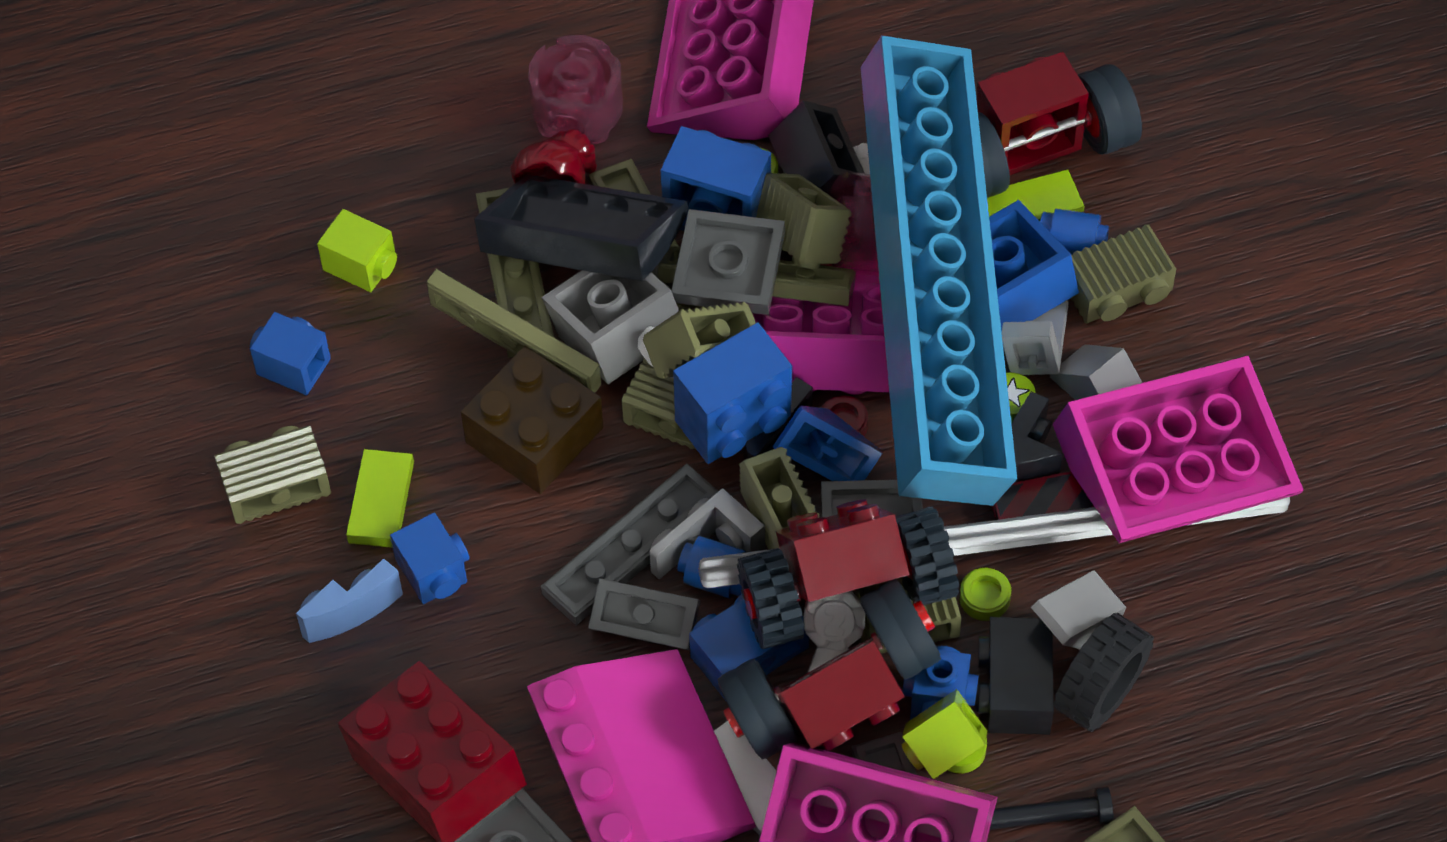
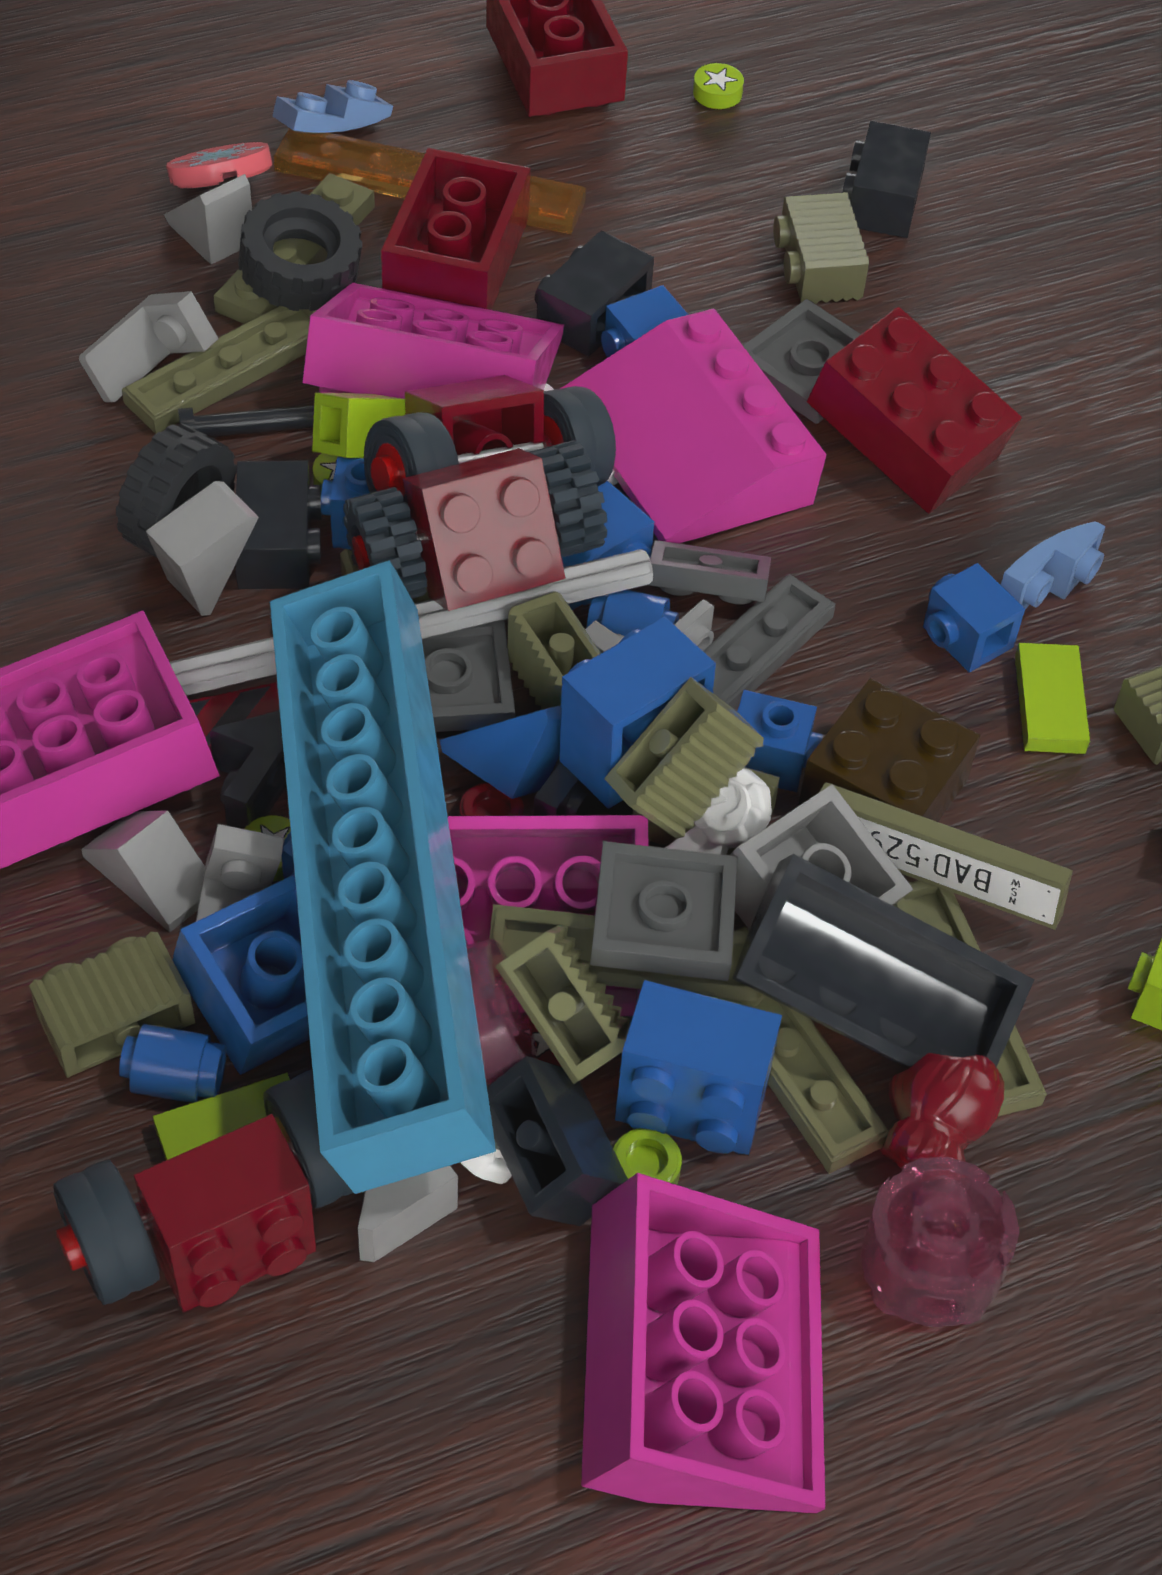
camera: 170 degrees right, 5 degrees down
(618, 453) = (786, 736): none -> blue brick

